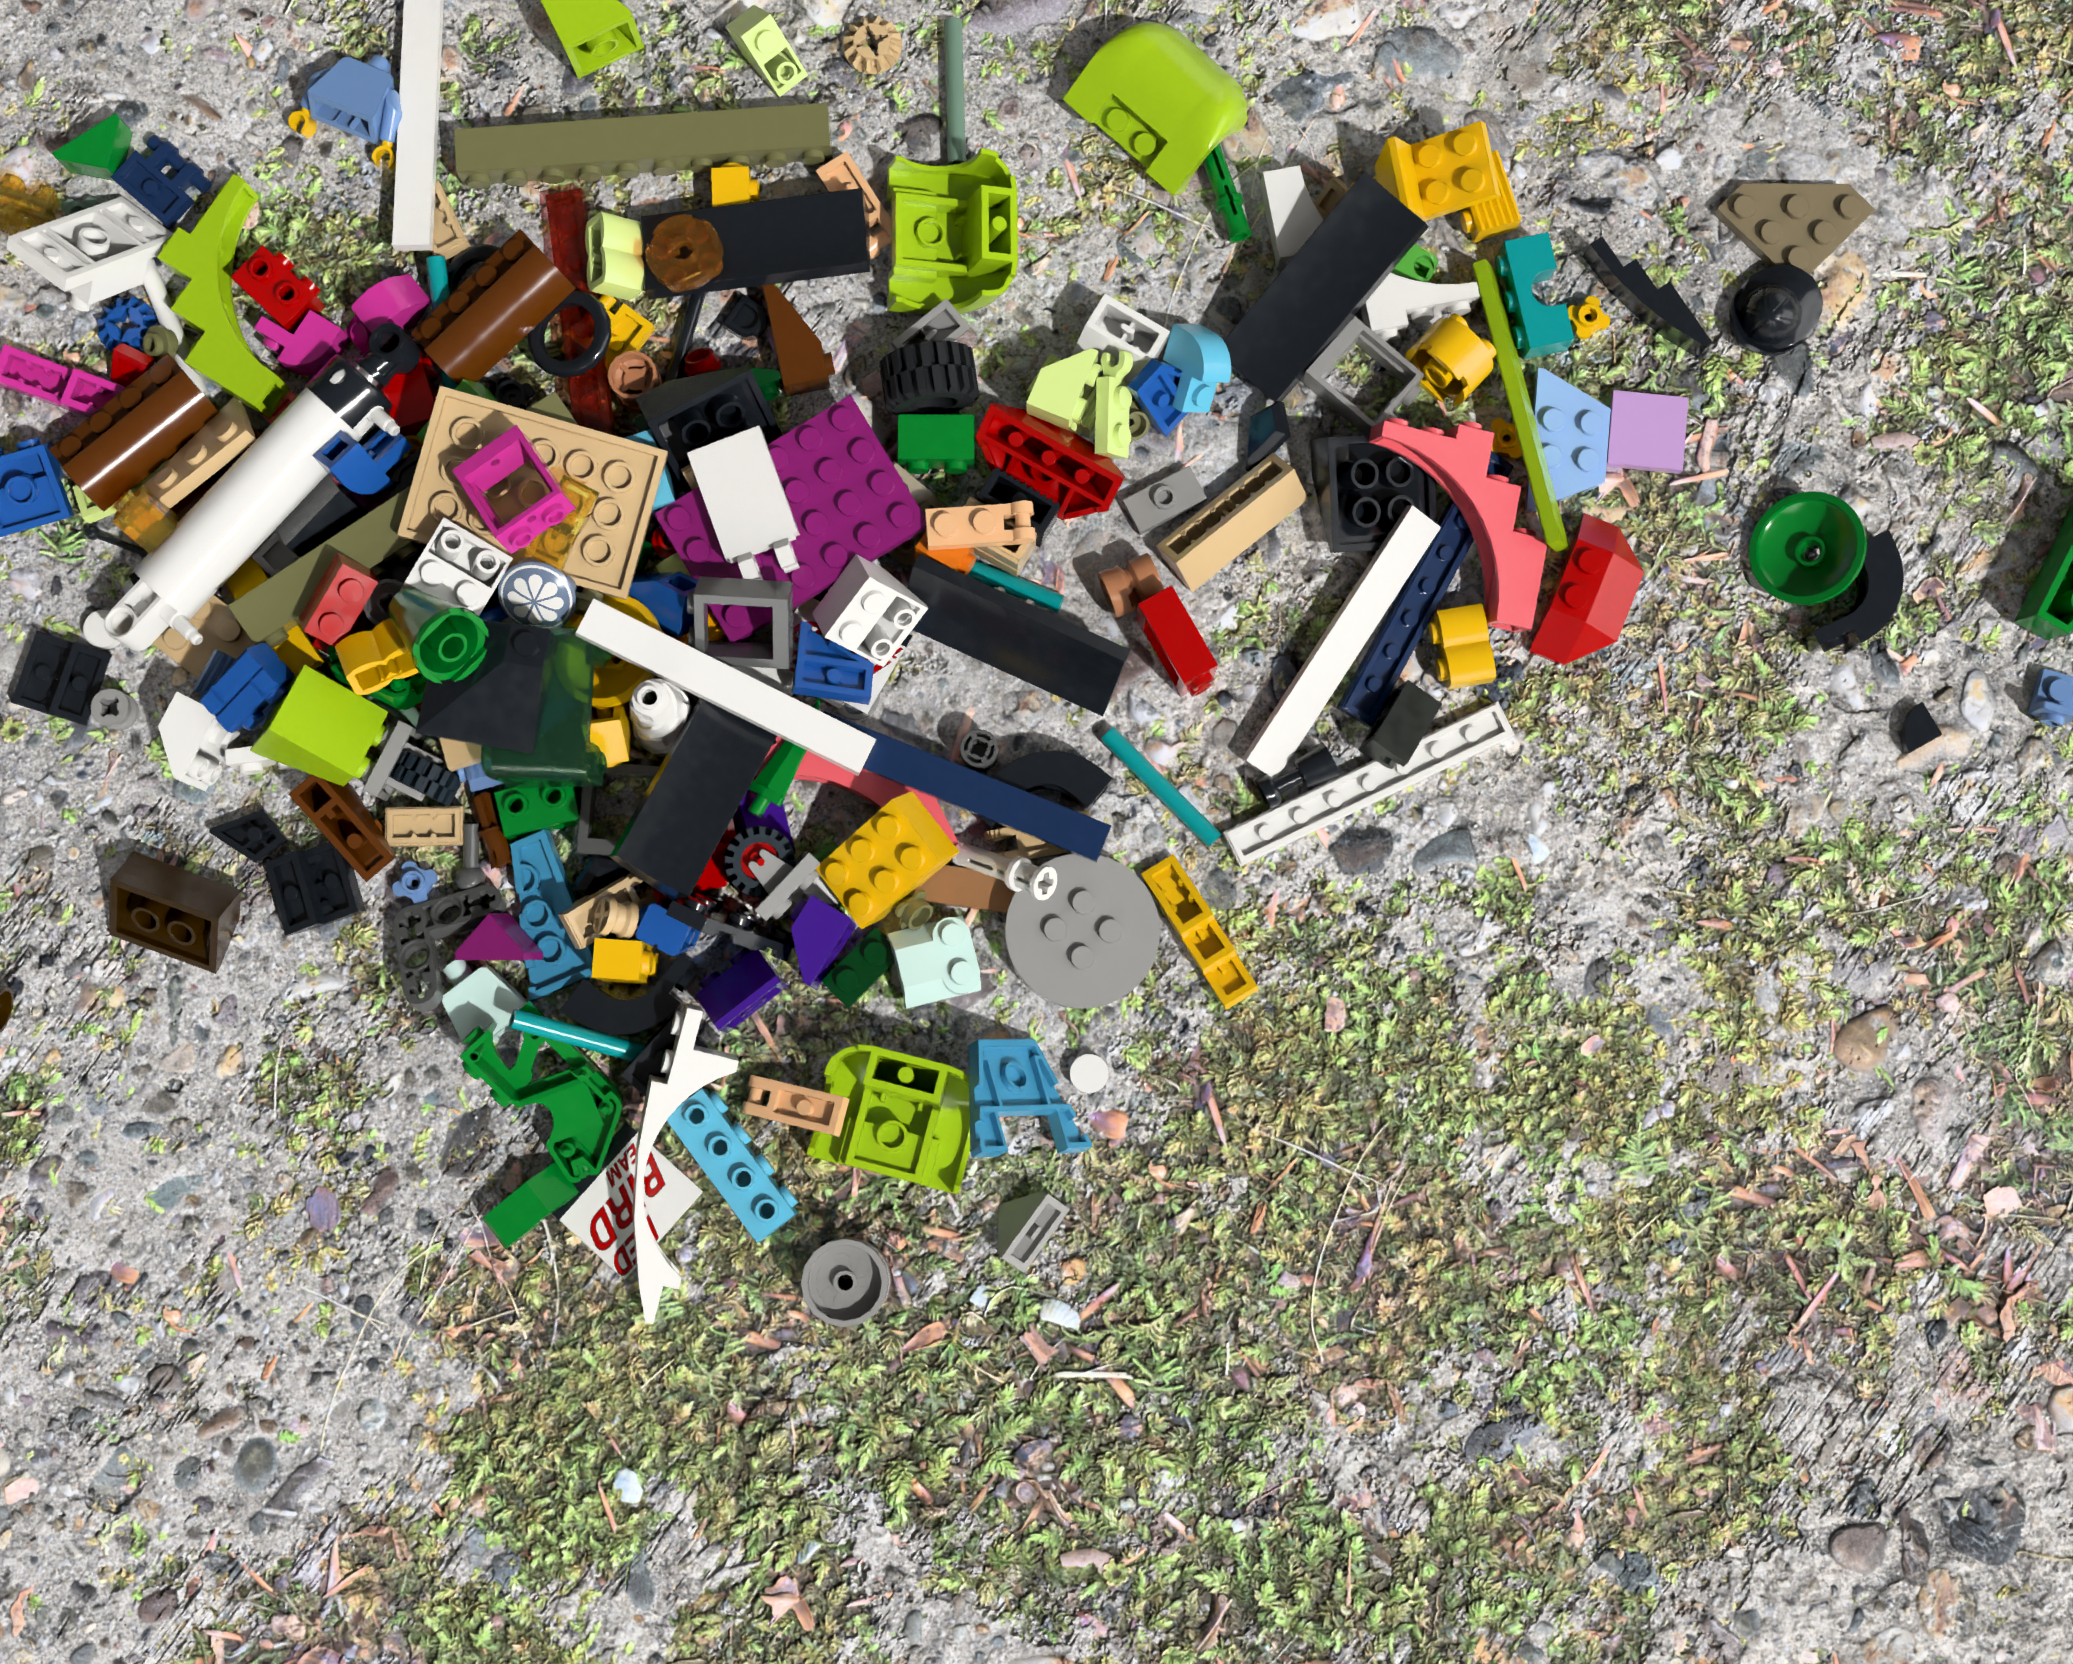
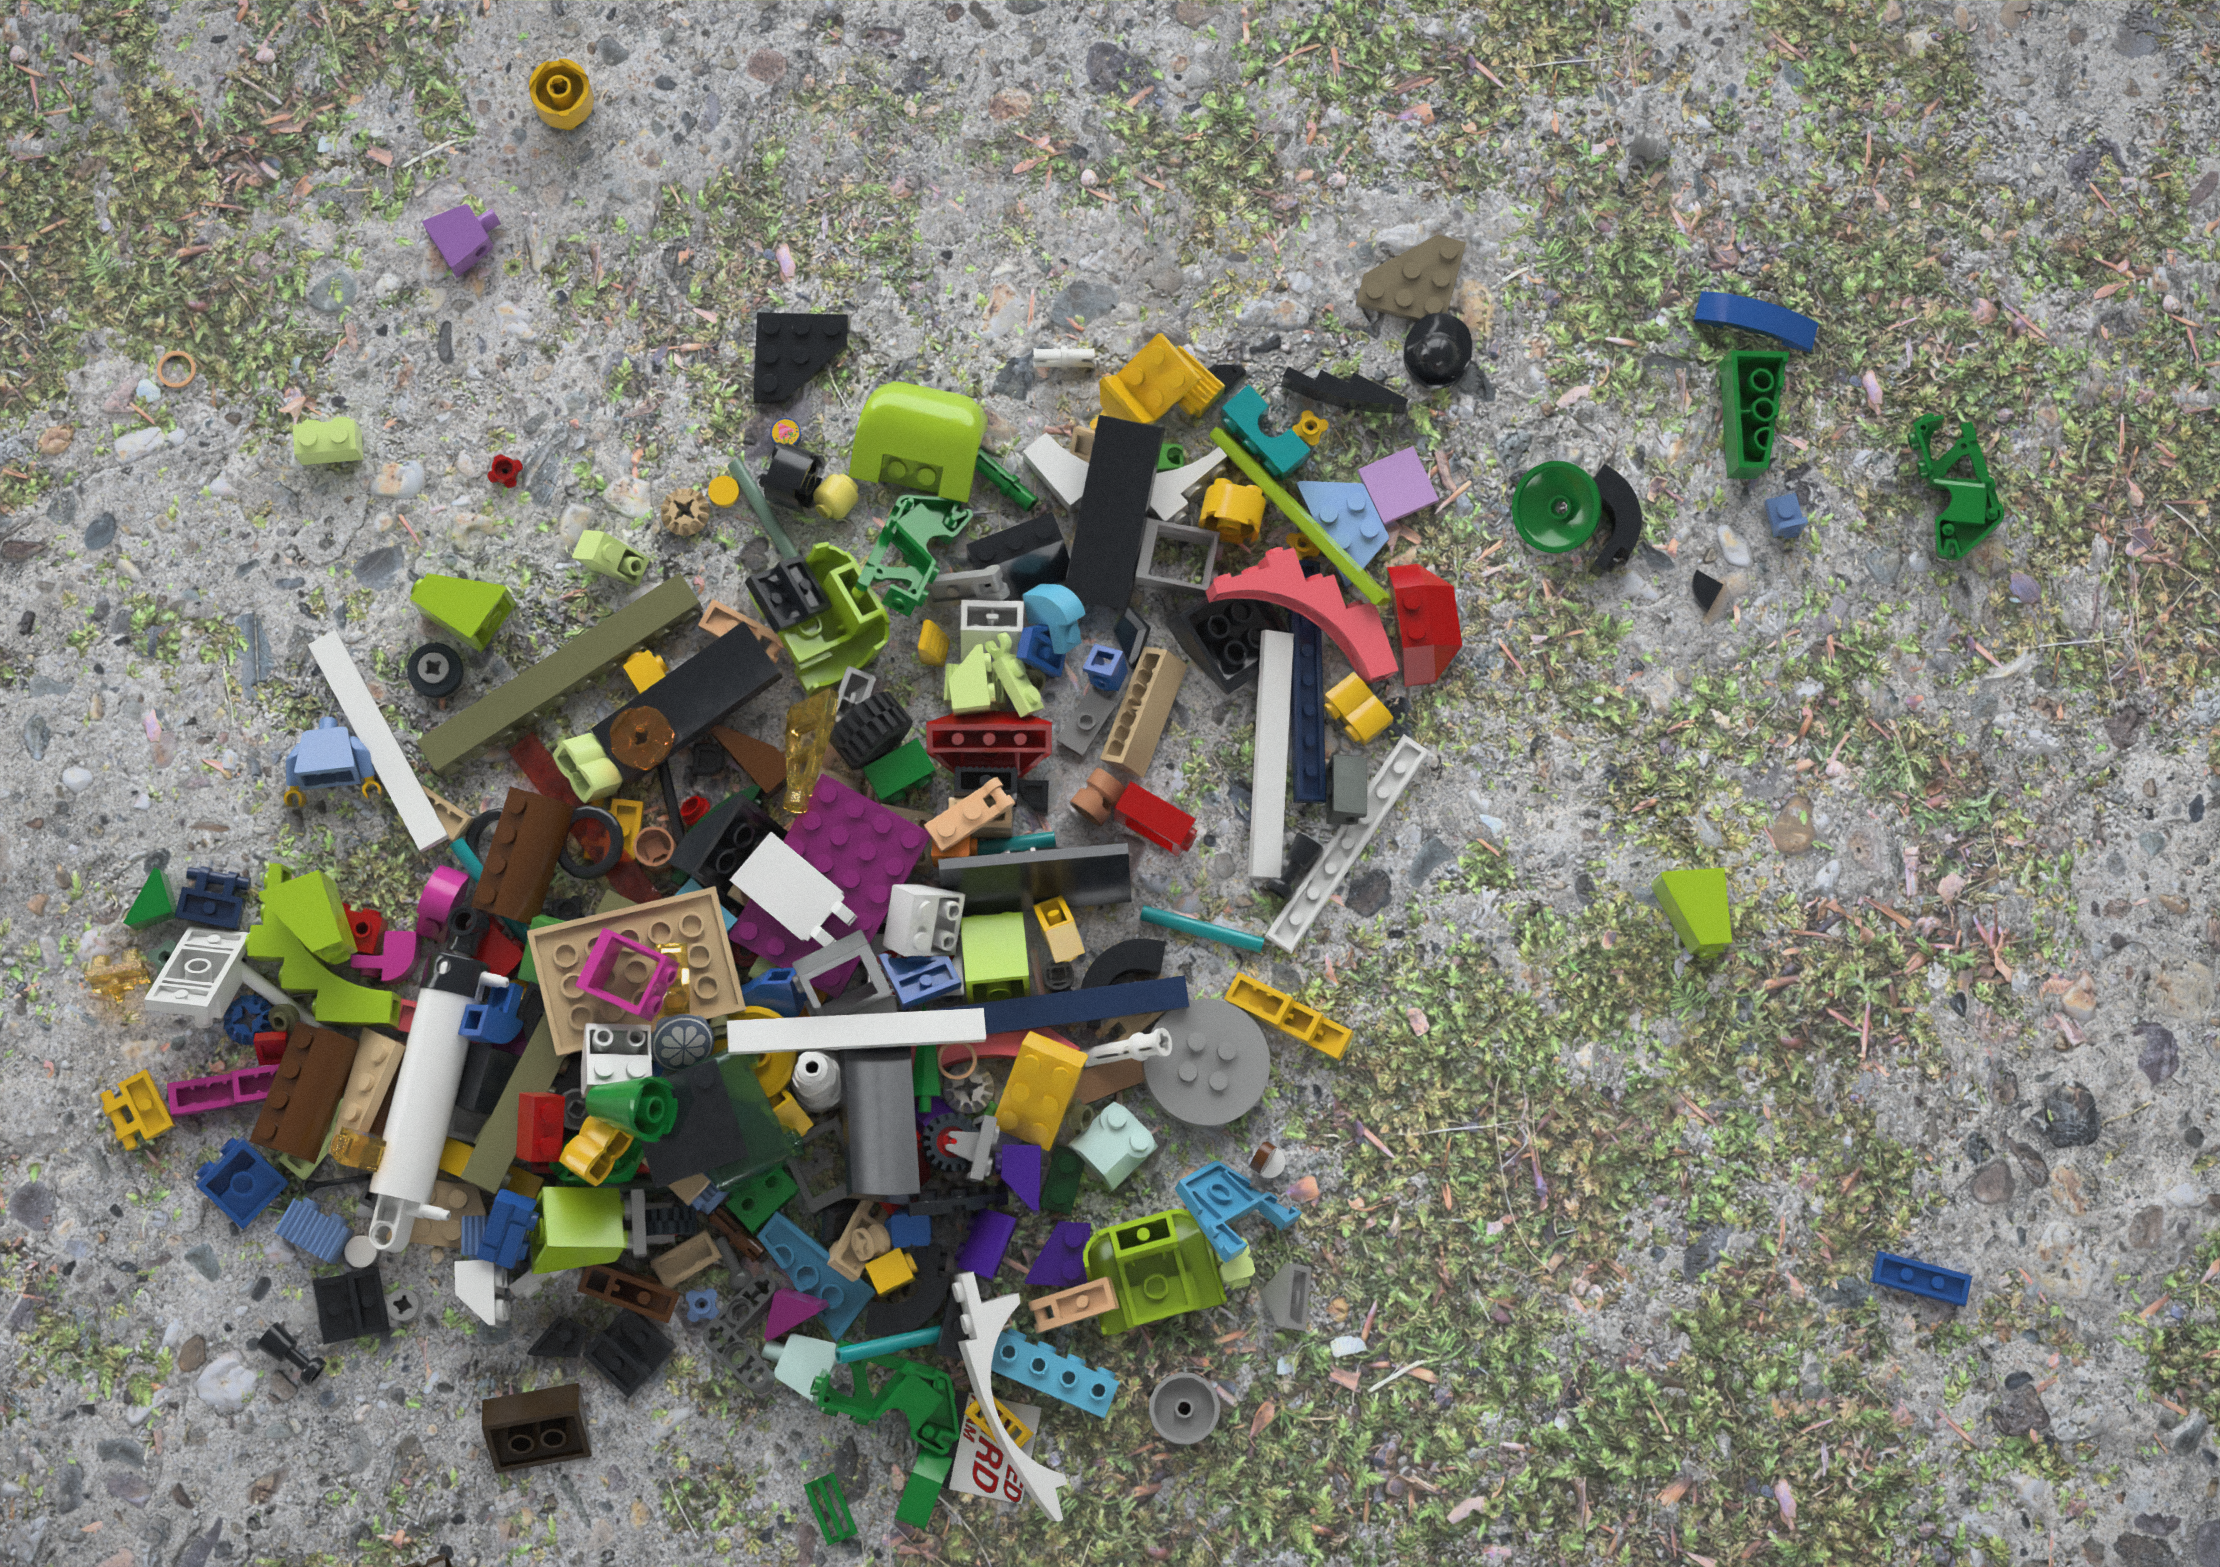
camera: 35 degrees left, 5 degrees down
(67, 580) = (315, 1231): none -> medium blue brick
(237, 248) = (314, 914): none -> lime slope
(411, 1165) = (818, 1512): none -> green tile
(531, 76) = (442, 679): none -> black wheel
(661, 1178) = (1020, 1441): none -> yellow slope
(809, 1047) = (1062, 1257): none -> dark purple wing
(818, 799) = (960, 1077): none -> light nougat piece
(825, 831) = (980, 1097): none -> white gear
(872, 328) = (810, 714): none -> clear yellow plate
(923, 693) = (995, 957): none -> lime slope
(924, 46) = (723, 491): none -> yellow tile
(926, 186) = (788, 594): none -> black slope
(987, 1171) = (1237, 1271): none -> yellowish green brick
(1003, 66) = (792, 477): none -> black brick
(1006, 701) = (1059, 929): none -> yellow brick
(1024, 20) = (786, 431): none -> tile
(1038, 114) = (836, 496): none -> light yellow head
(1048, 325) = (933, 645): none -> yellow slope
(1067, 545) = (1035, 793): none -> black tile
(1083, 1065) = (1263, 1157): none -> reddish brown tile
(1093, 187) = (909, 528): none -> green piece
(1101, 276) = (967, 585): none -> light grey plate
(1194, 285) = (1026, 555): none -> black slope
(1210, 457) = (1102, 674): none -> blue brick
(1365, 98) = (1063, 358): none -> white pin
(1532, 213) = (1228, 375): none -> black tile
(1708, 1067) = (1697, 908): none -> lime slope
(1719, 1602) = (1921, 1279): none -> blue tile

